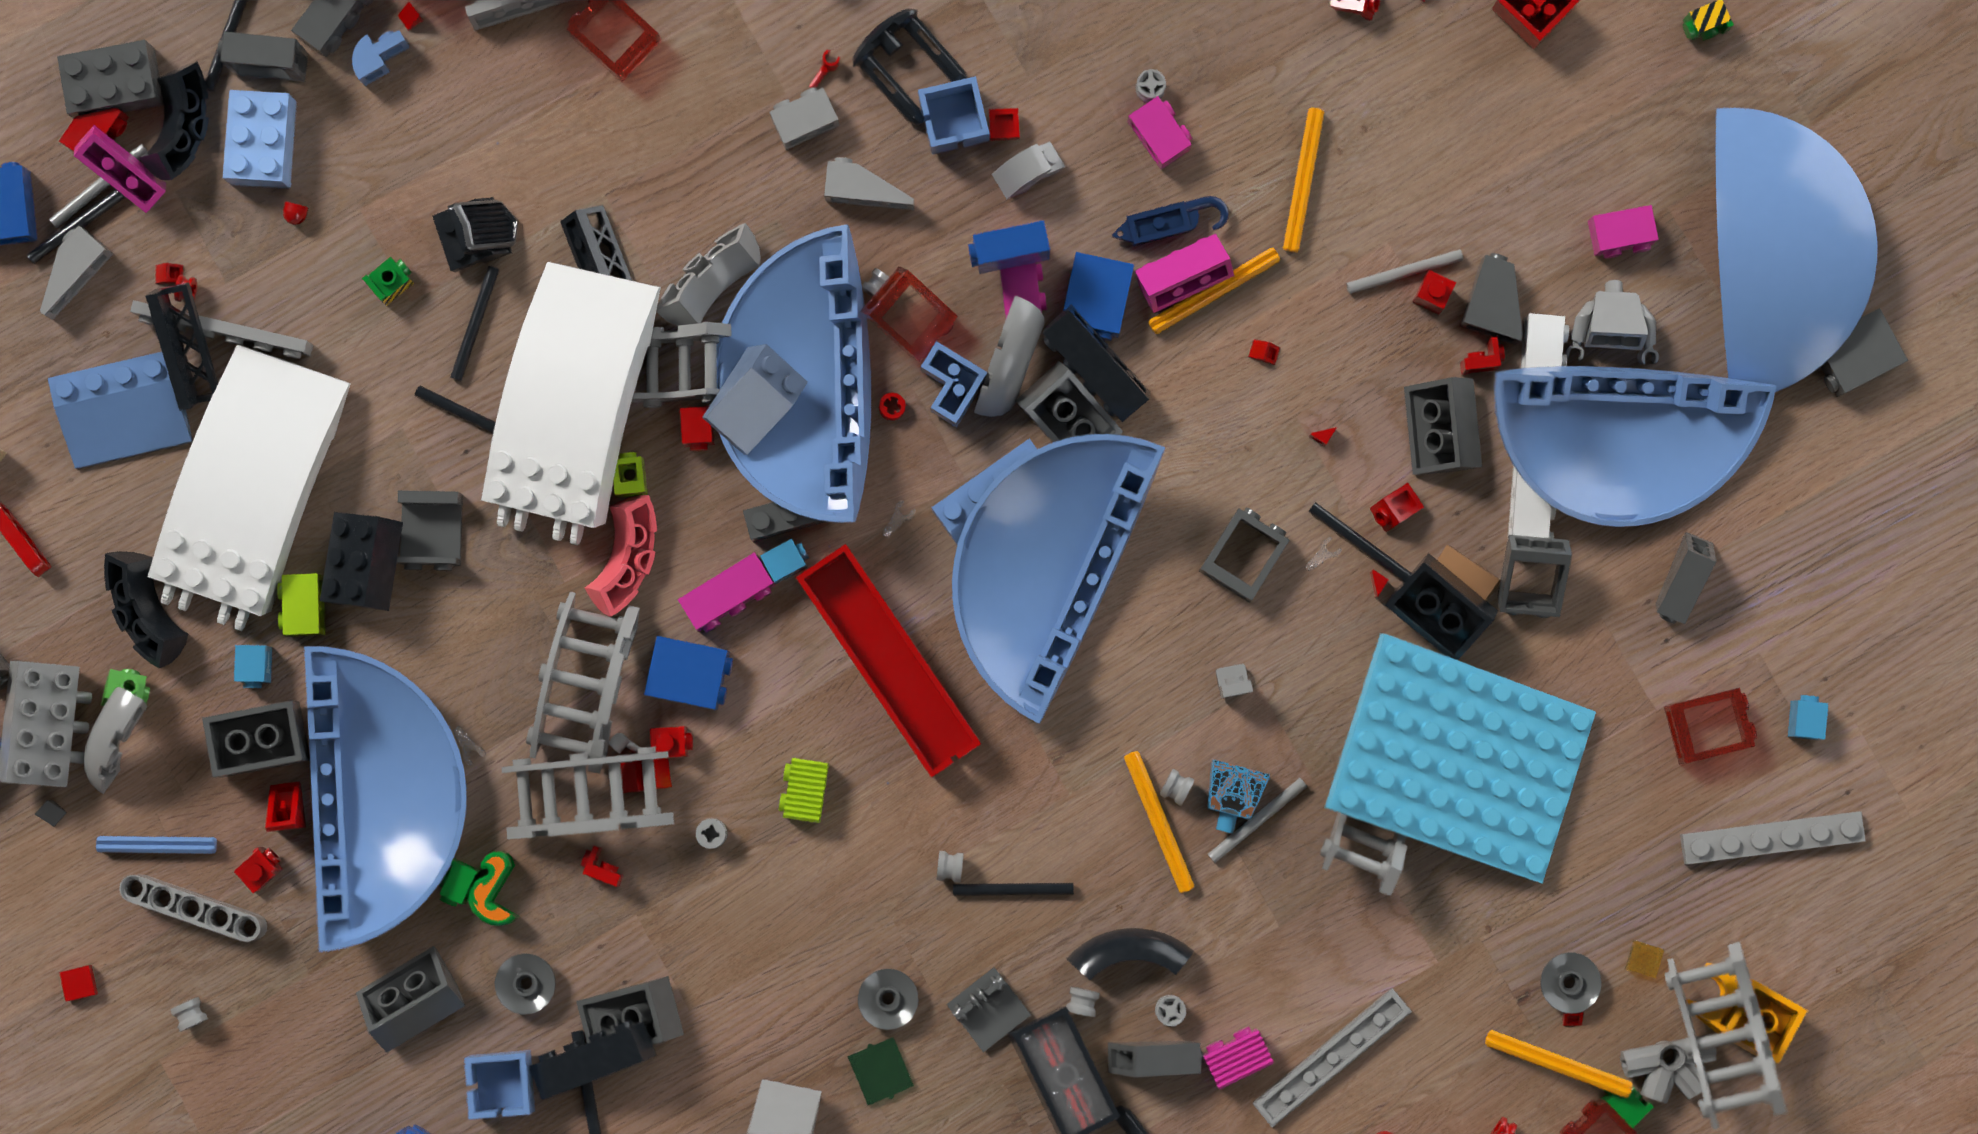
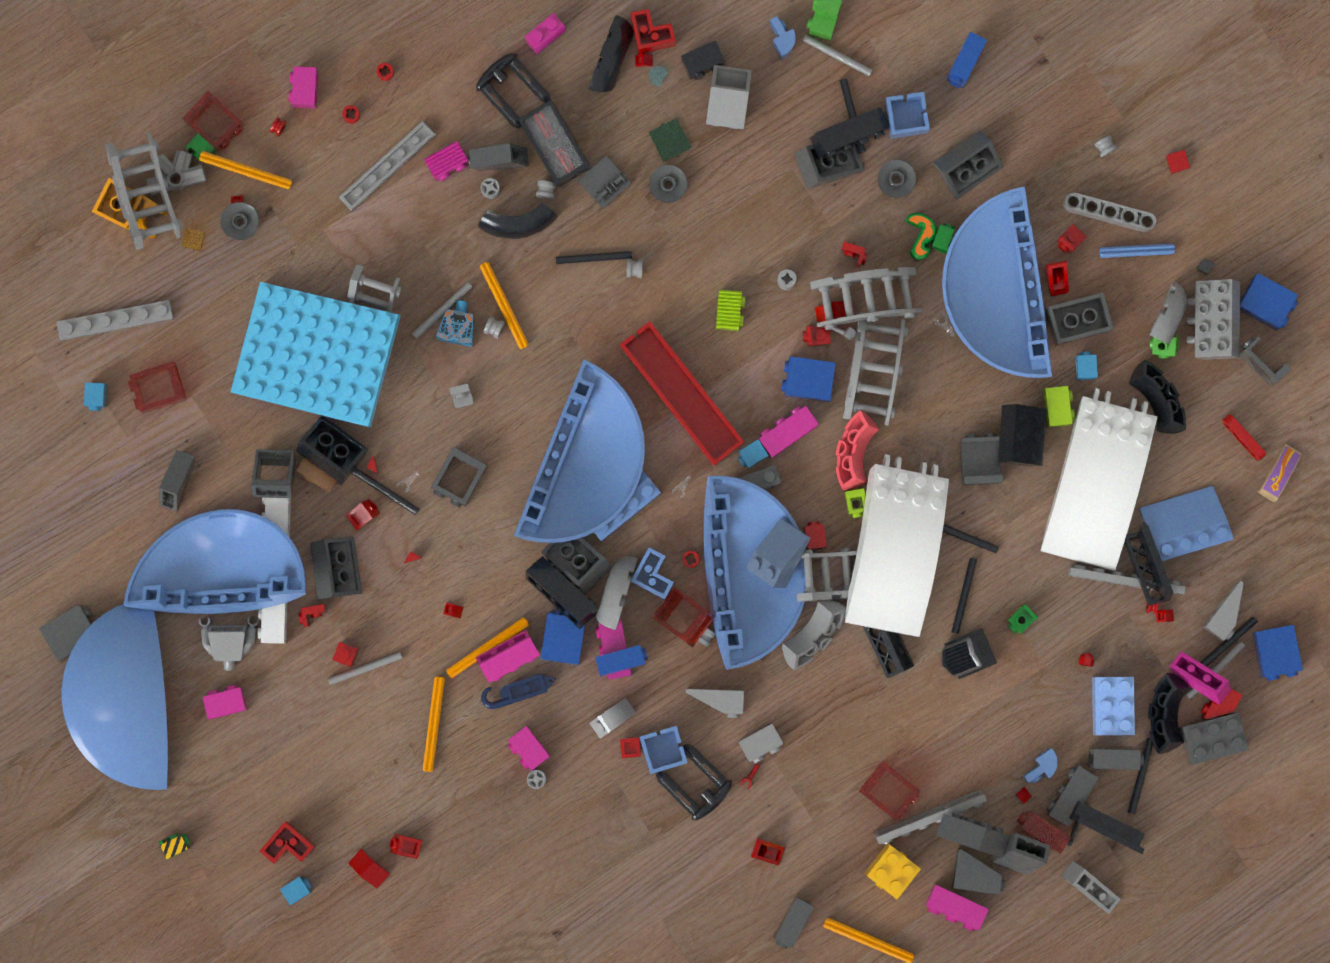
camera: 175 degrees right, 0 degrees up
(1494, 301) = (307, 652): dark grey slope -> none

